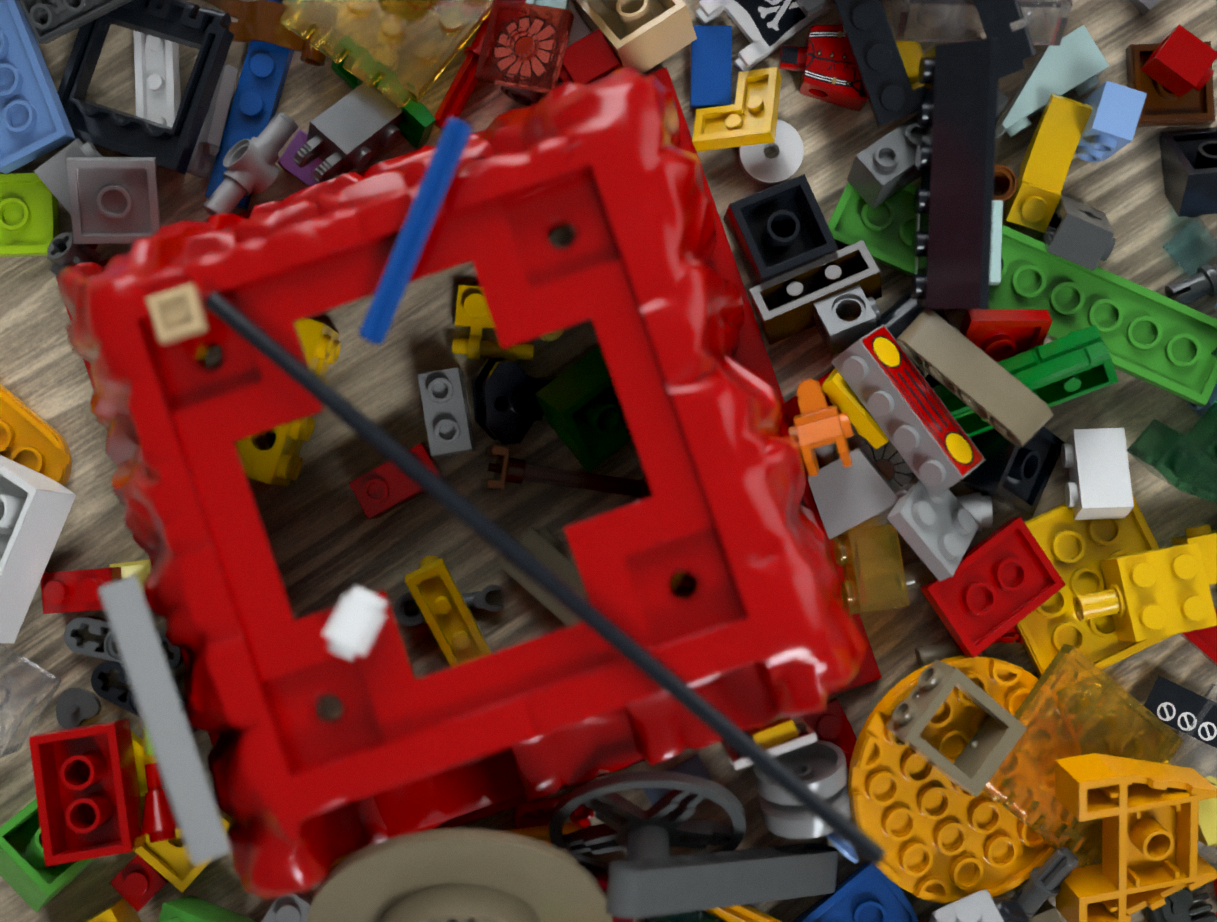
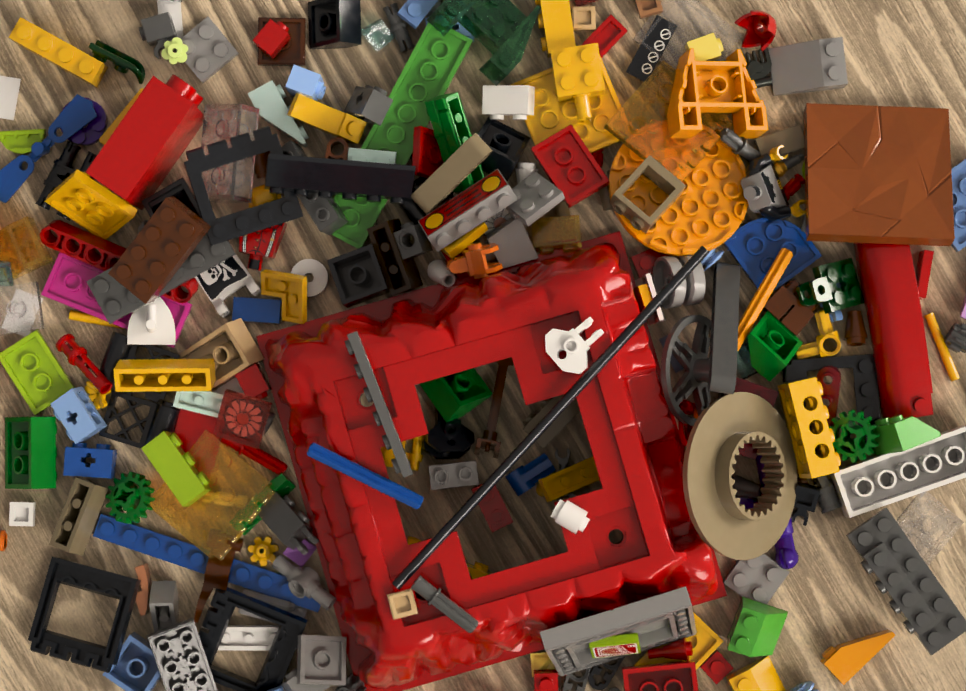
camera: 85 degrees left, 0 degrees up
(178, 392) = (444, 604): none -> dark grey axle
(310, 104) = (268, 551): none -> yellow plant
(453, 541) = (526, 476): none -> blue piece
(569, 239) = (382, 415): none -> dark grey plate
(682, 613) = (573, 344): none -> white hinge
(790, 370) = (438, 273): none -> white cone

